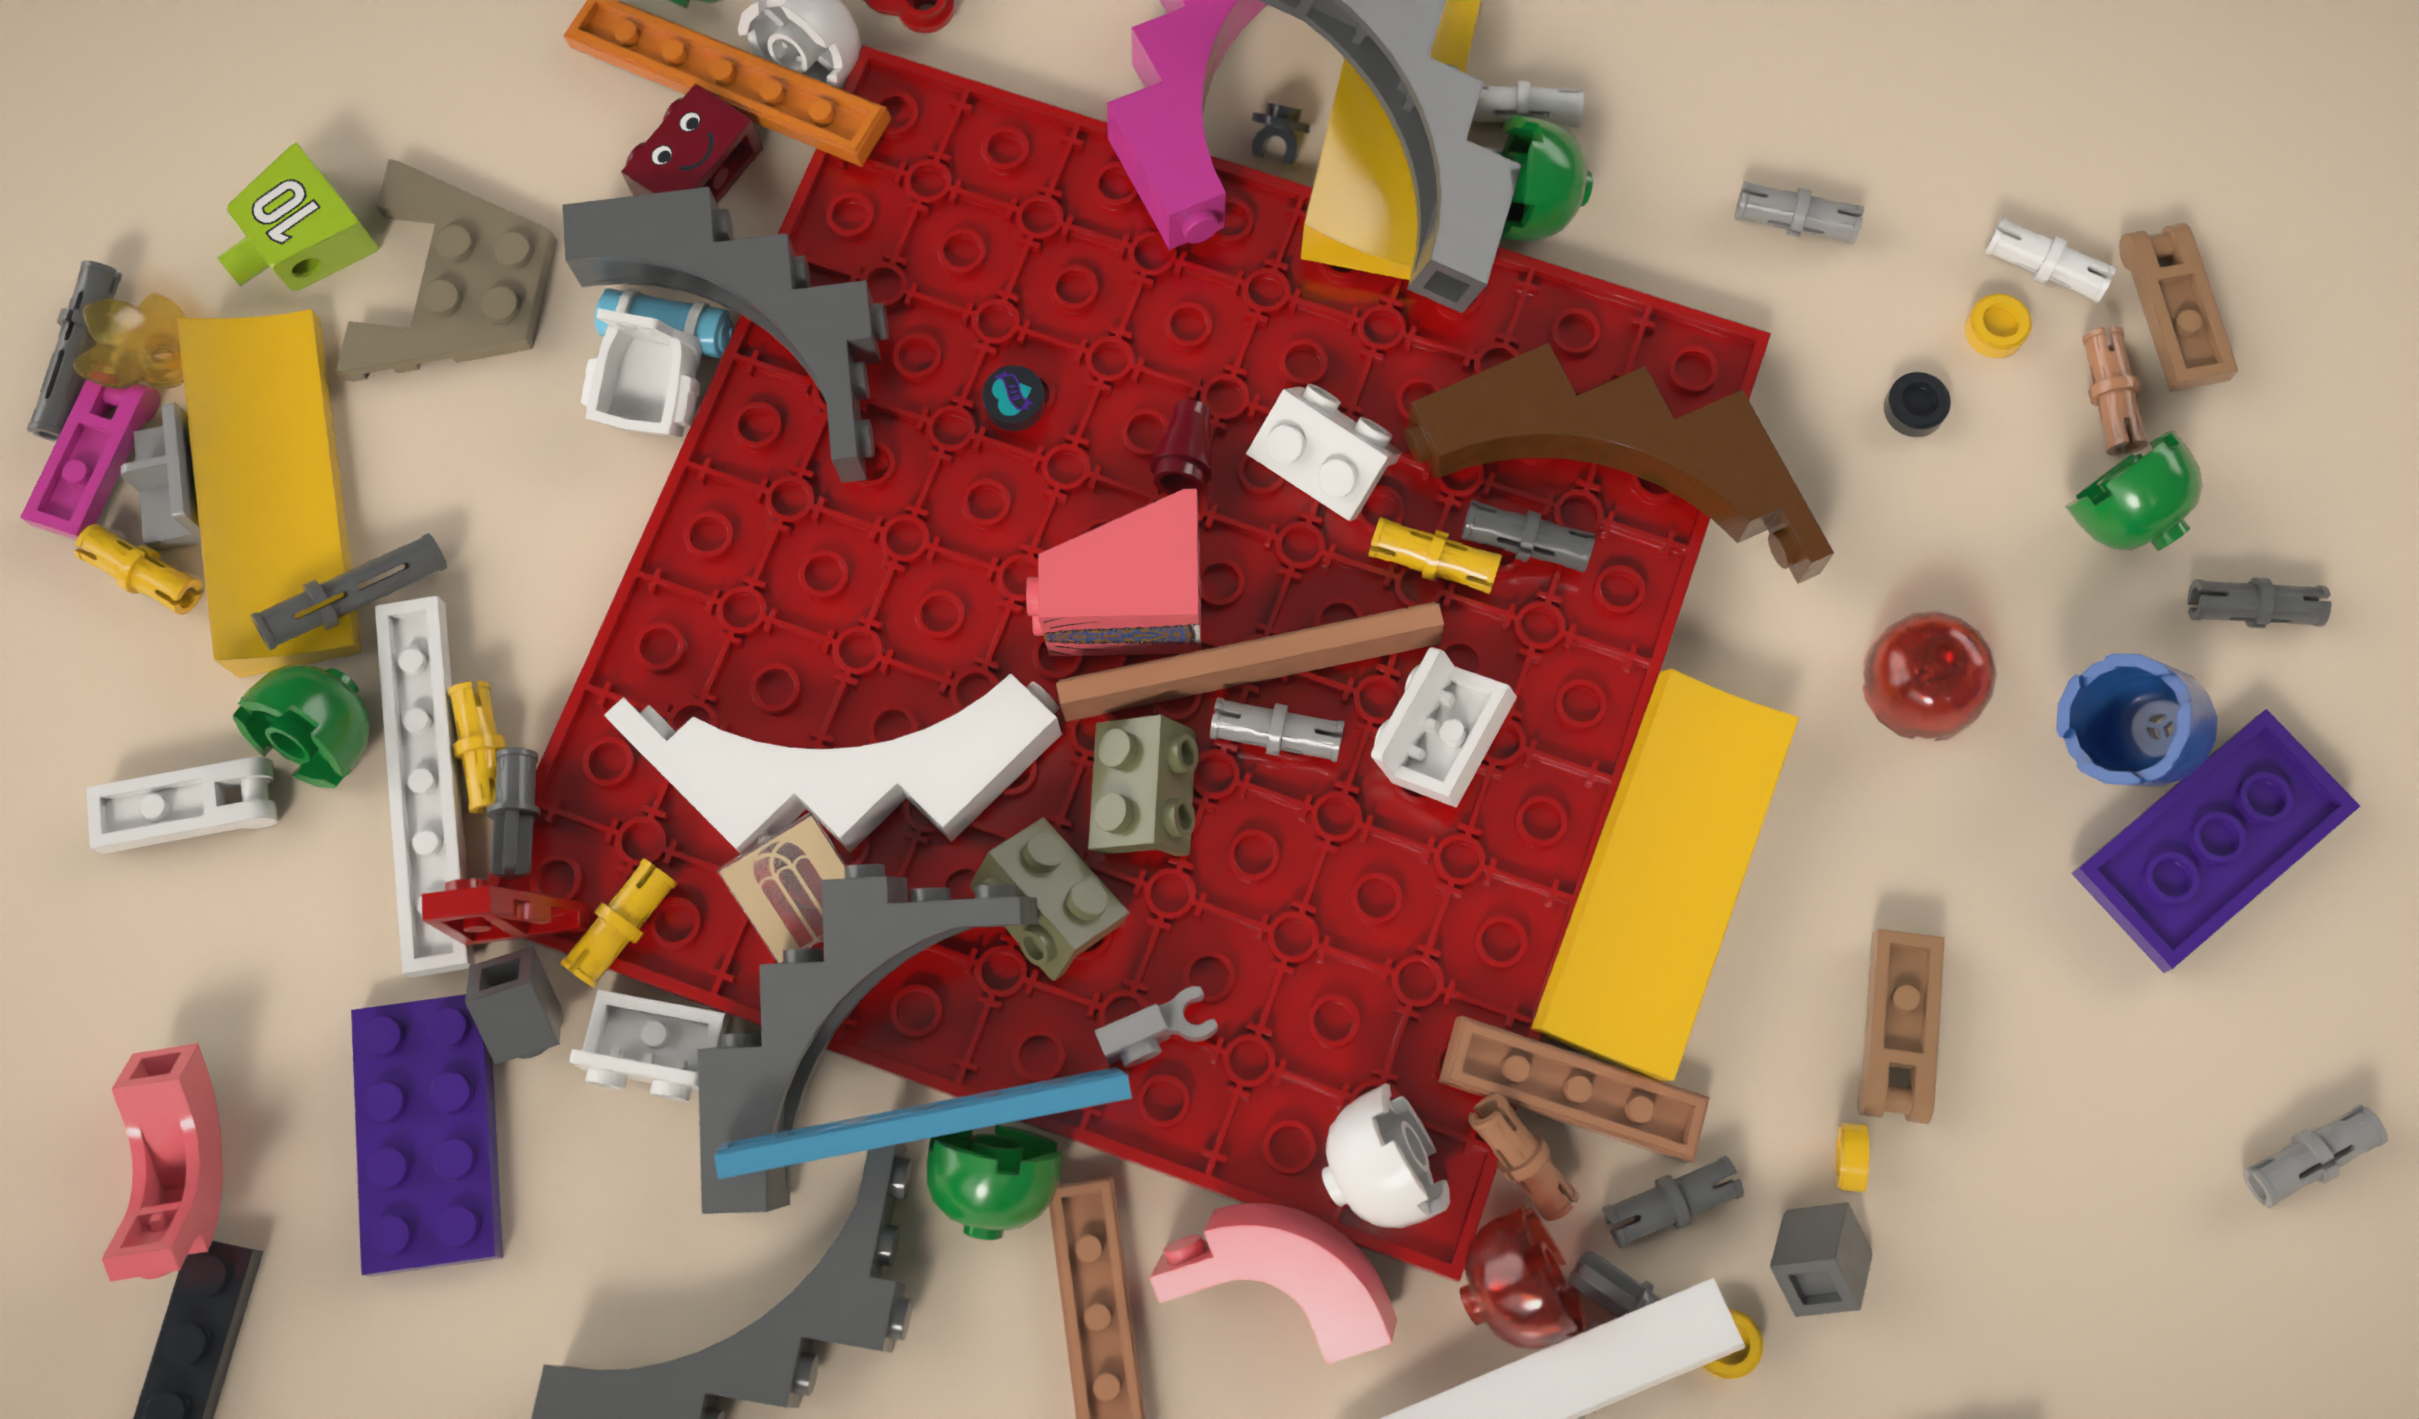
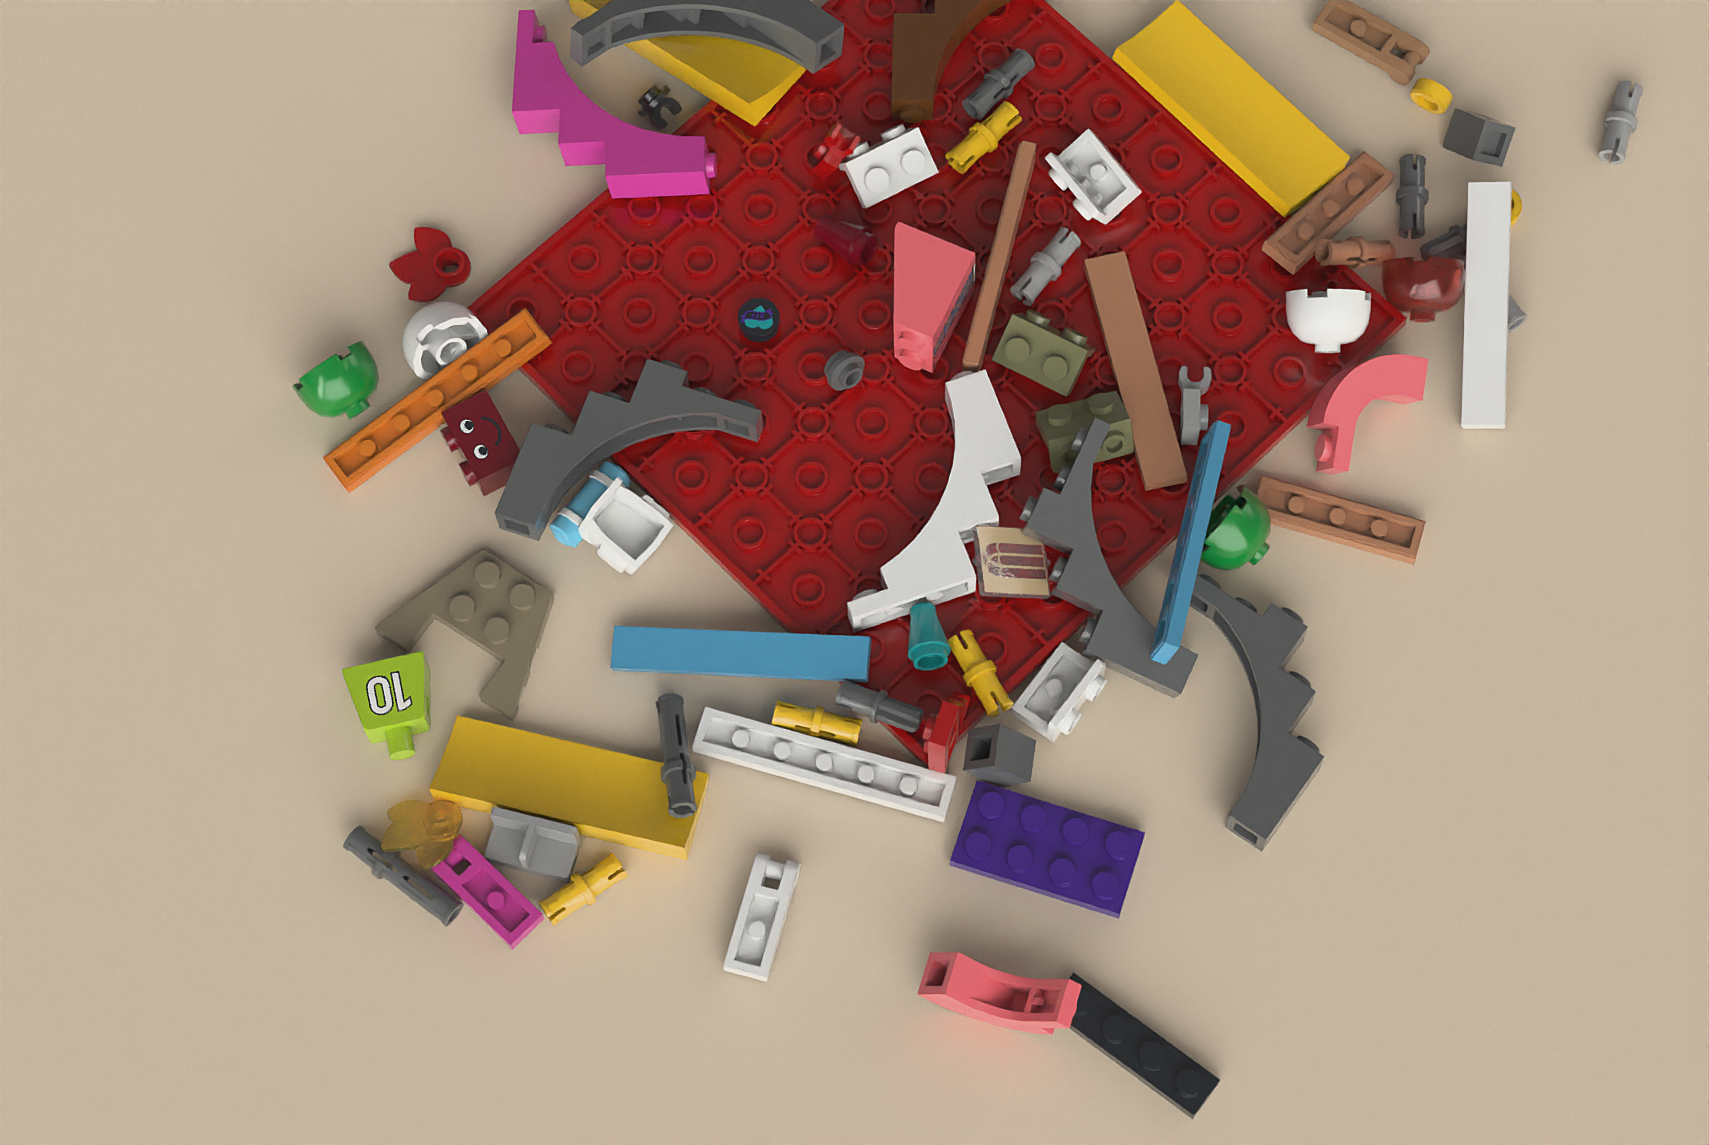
camera: 65 degrees left, 5 degrees down
(308, 719) = (753, 812): green cylinder -> none
(530, 609) = (741, 653): none -> dark azure tile
(637, 828) = (927, 640): none -> teal cone
(984, 537) = (844, 370): none -> dark grey plate
(1176, 925) = (1135, 370): none -> nougat tile
(1302, 365) = (832, 149): none -> red plate

